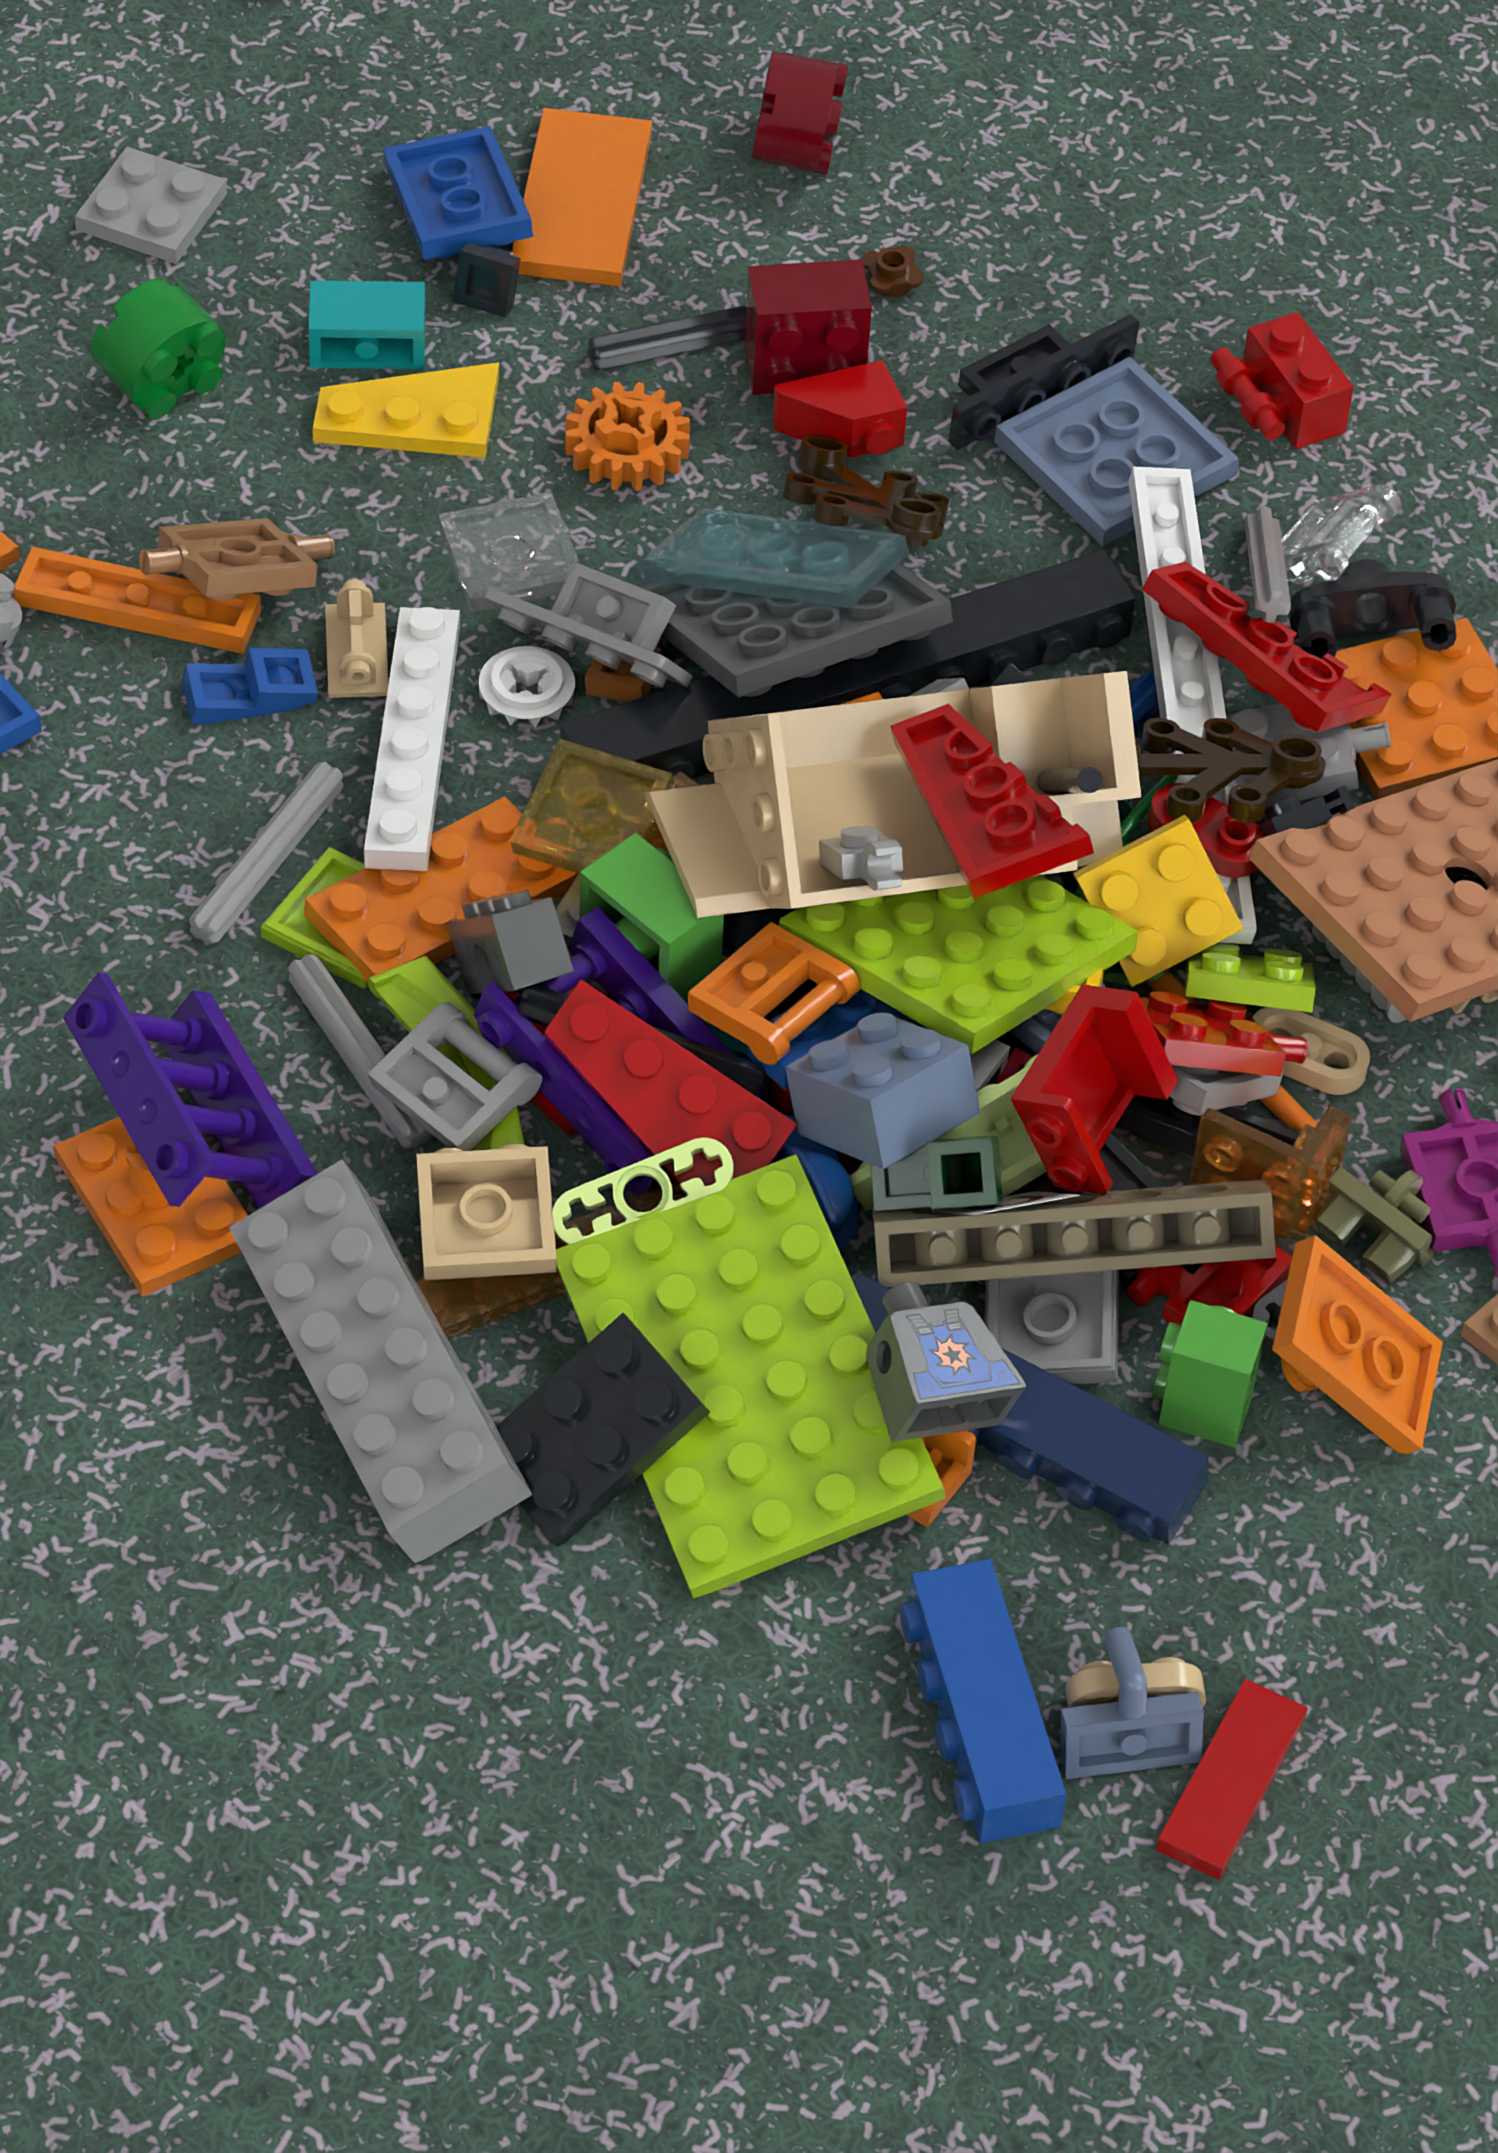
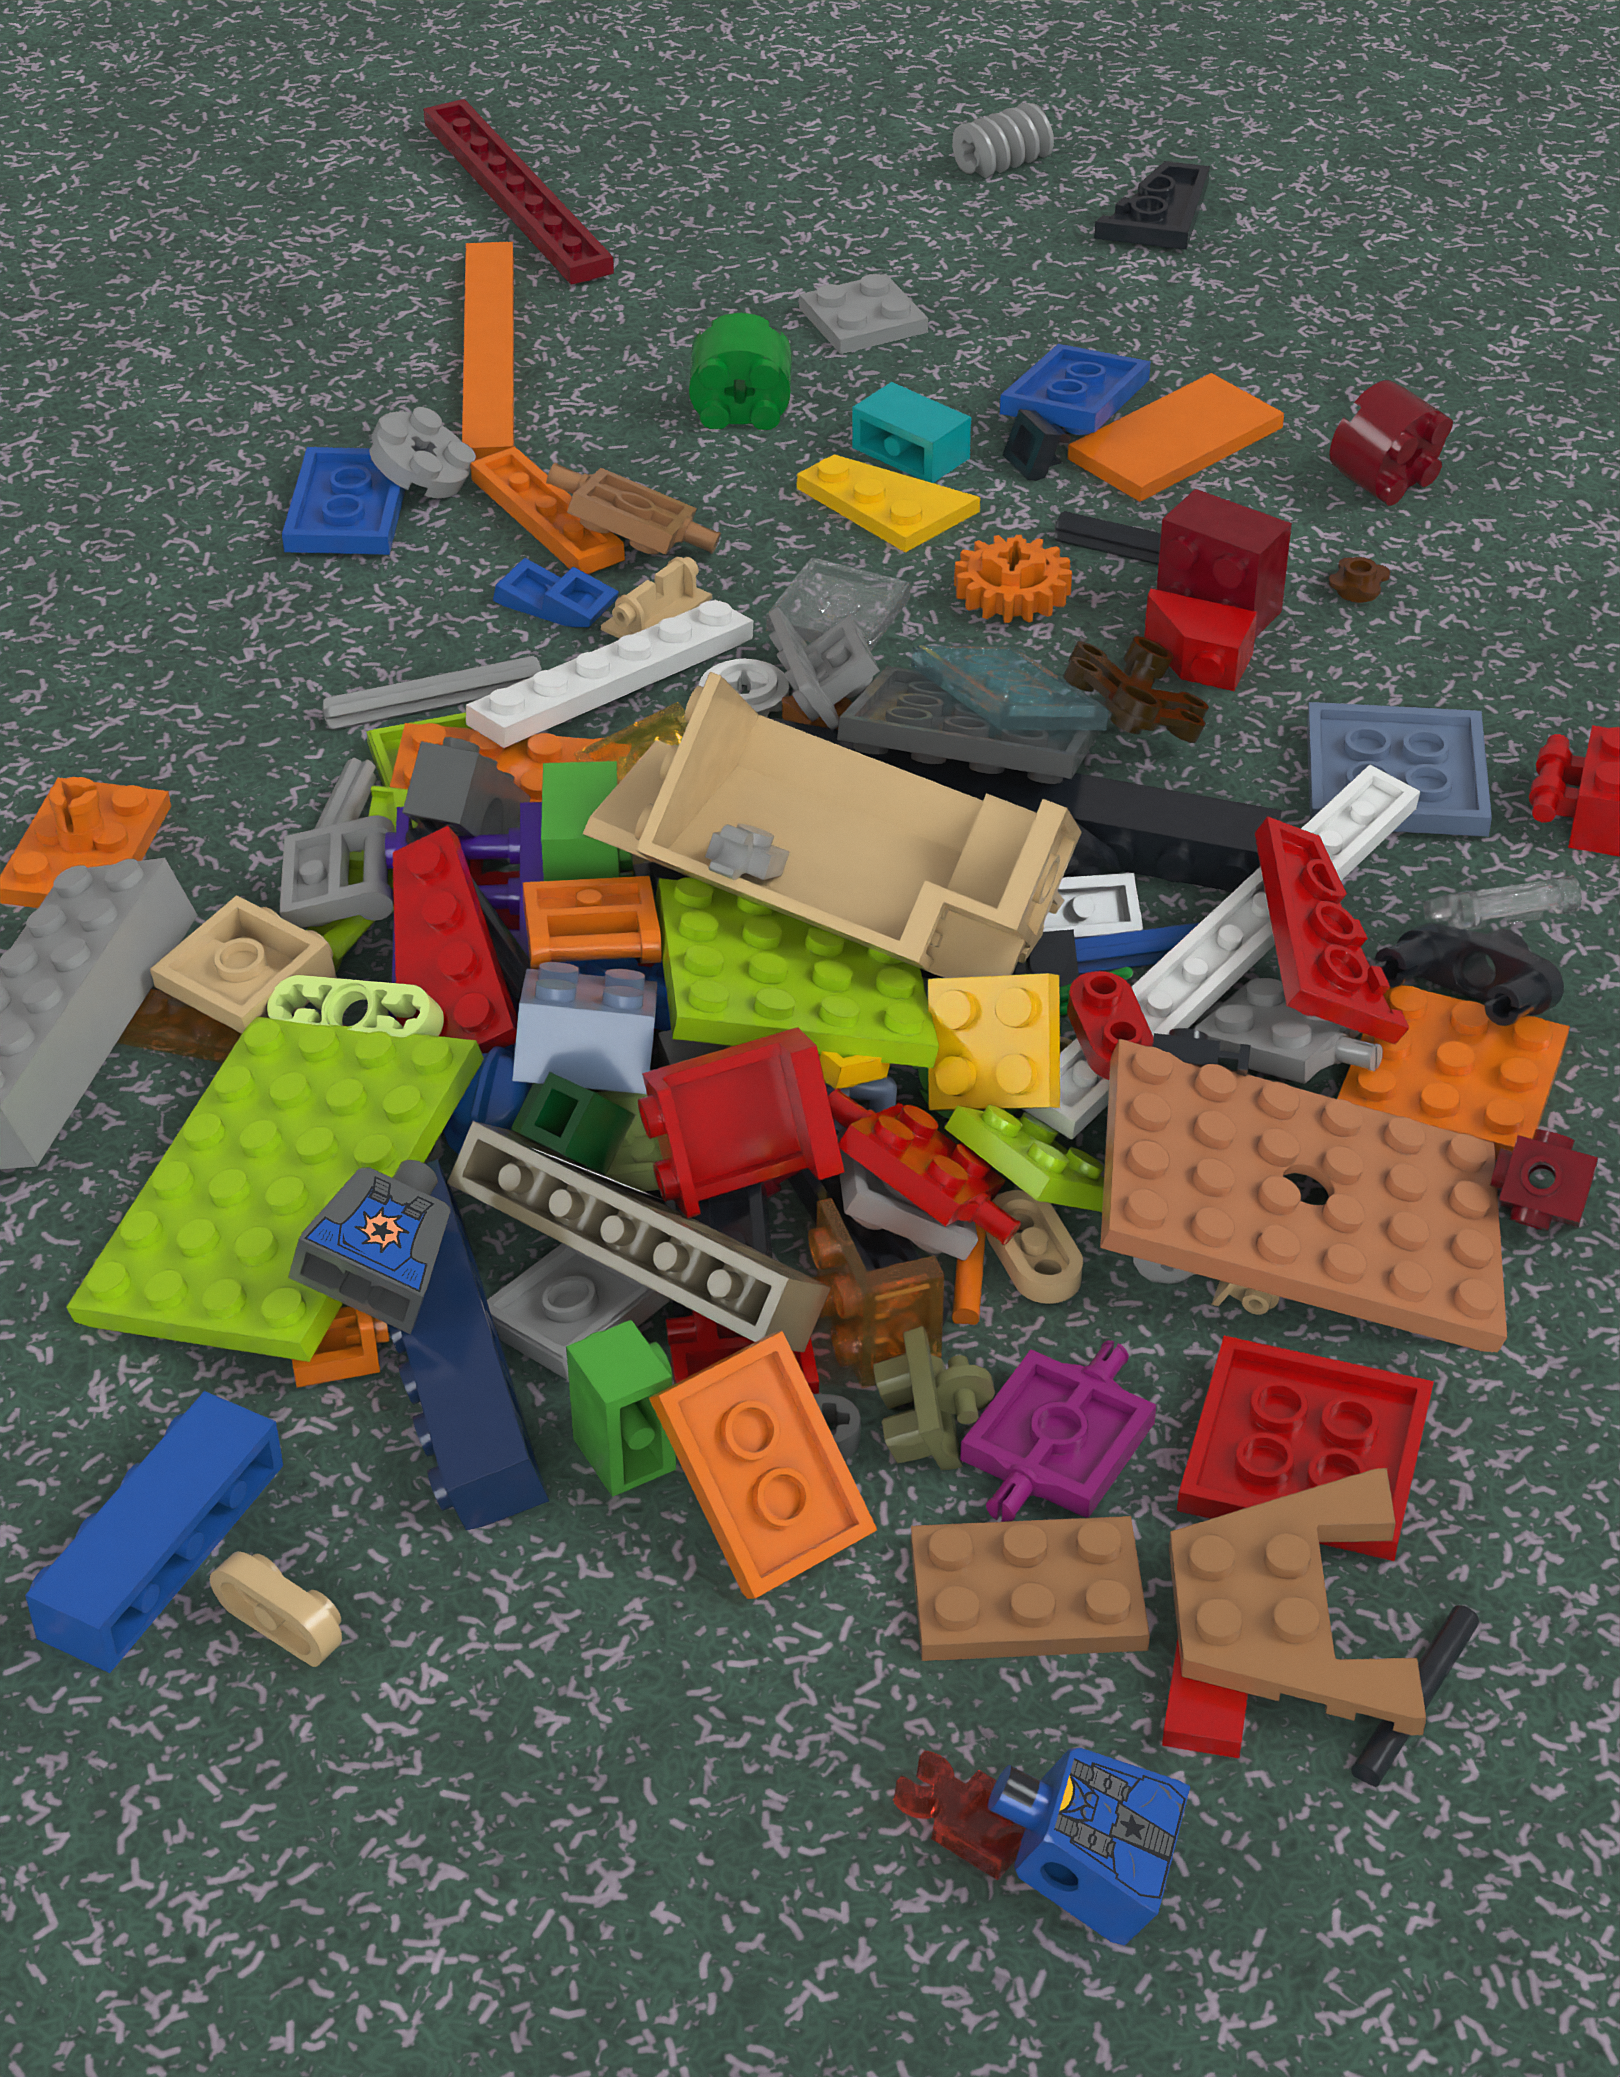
camera: 45 degrees right, 10 degrees down
(218, 1074) = (201, 794): dark purple fence -> none
(597, 1427) = (129, 1148): black plate -> none
(982, 806) = (872, 866): red wing -> none
(1032, 373) = (1382, 683): black bracket -> none
(1069, 780) = (957, 877): black bar -> none
(1135, 1730) = (225, 1630): sand blue plate -> none
(1231, 1779) = (276, 1734): red tile -> none
(1267, 564) = (1407, 886): light grey axle -> none
(1287, 762) = (1152, 968): dark brown plant -> none

